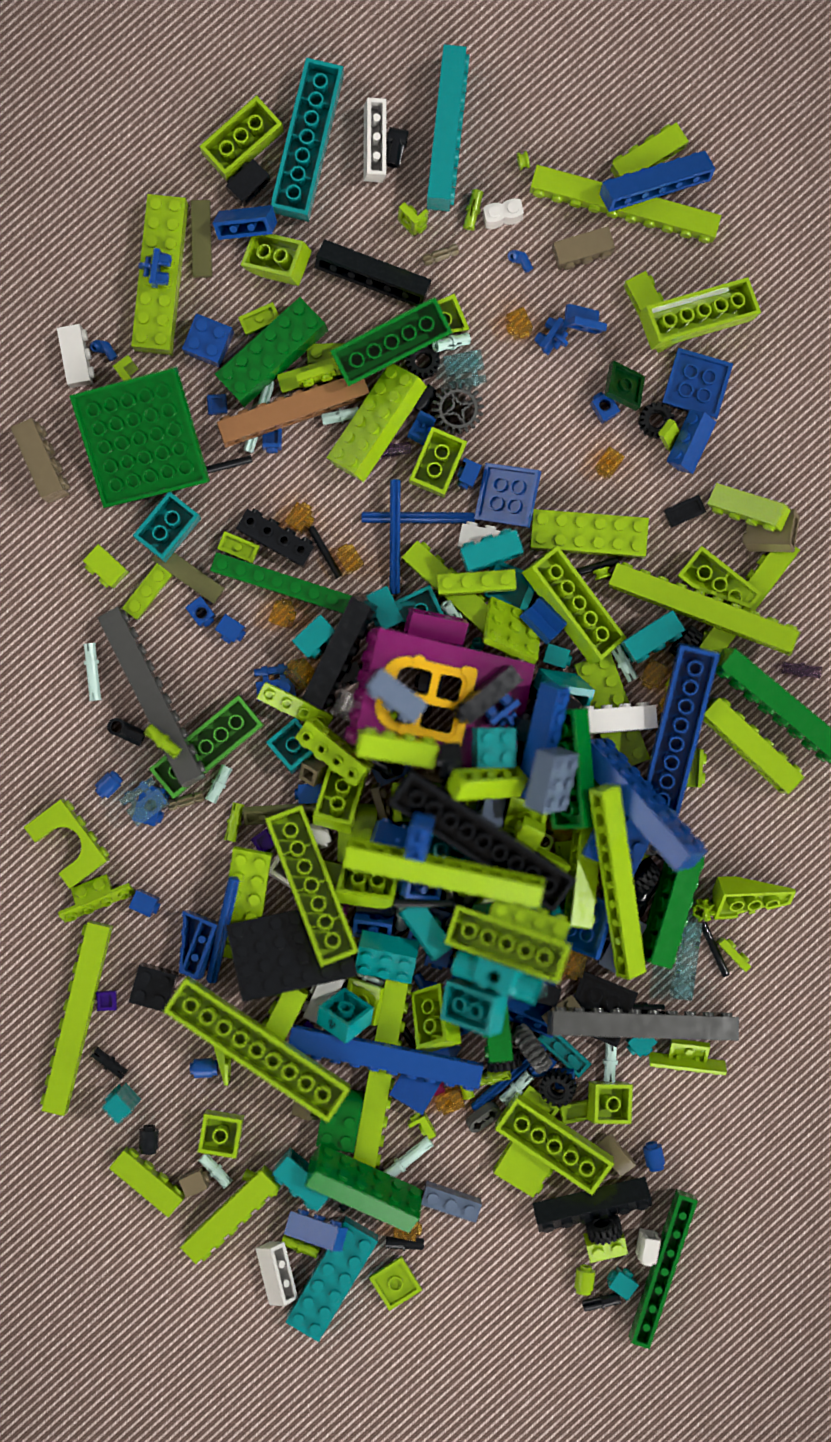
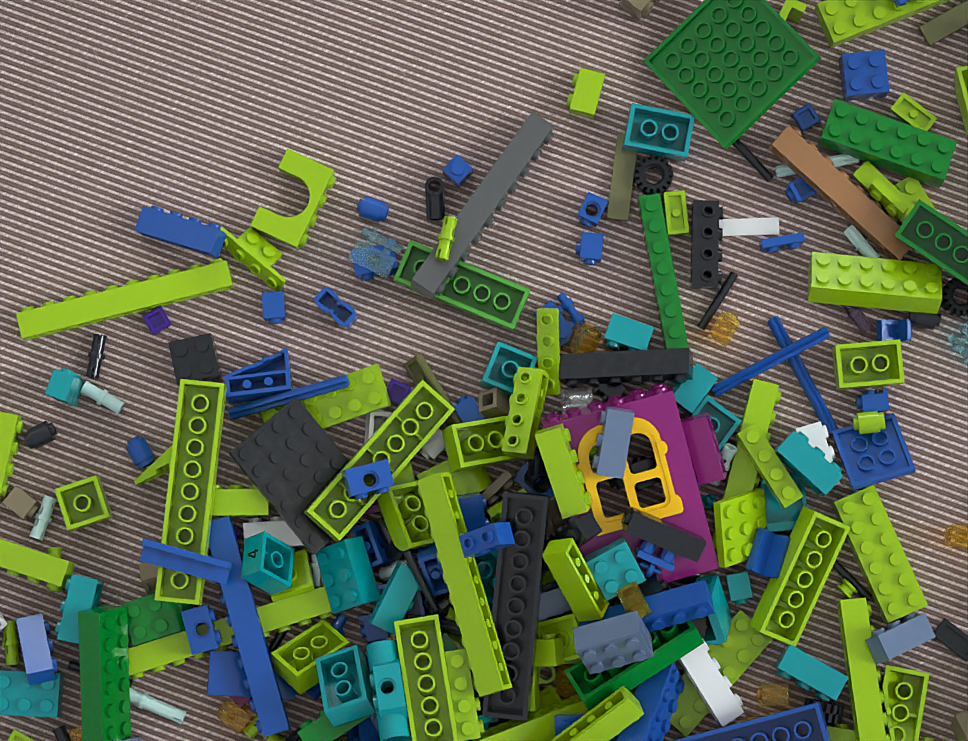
camera: 65 degrees right, 5 degrees down
(42, 949) = (180, 231): none -> blue brick
(92, 671) = (484, 129): light aqua pin -> none
(113, 701) = (457, 171): none -> blue brick
(144, 1075) = (102, 397): none -> light aqua pin
(147, 591) = (583, 147): lime plate -> none
(168, 856) = (331, 305): none -> blue brick
(186, 800) = (397, 294): dark tan axle -> none
(193, 539) = (662, 166): none -> black tyre
(218, 783) = (430, 317): light aqua pin -> none
(234, 822) = (400, 352): lime pin -> none
(280, 495) = (749, 226): none -> white sticker
(282, 613) = (634, 291): clear yellow brick -> none
(300, 517) = (739, 258): clear yellow brick -> none
(308, 470) = (773, 244): none -> blue plate
(310, 1082) = (185, 561): none -> blue fence
(322, 892) = (378, 470): none -> blue brick
(376, 1102) = (192, 619): none -> blue brick
(426, 1126) = (196, 706): lime bracket -> none
(463, 423) = (921, 370): dark grey gear -> none
(483, 486) = (869, 422): none -> lime brick
(526, 746) = (633, 599): none -> clear yellow brick
(624, 663) = (768, 659): light aqua pin -> none
(662, 553) = (899, 637): none -> sand blue brick

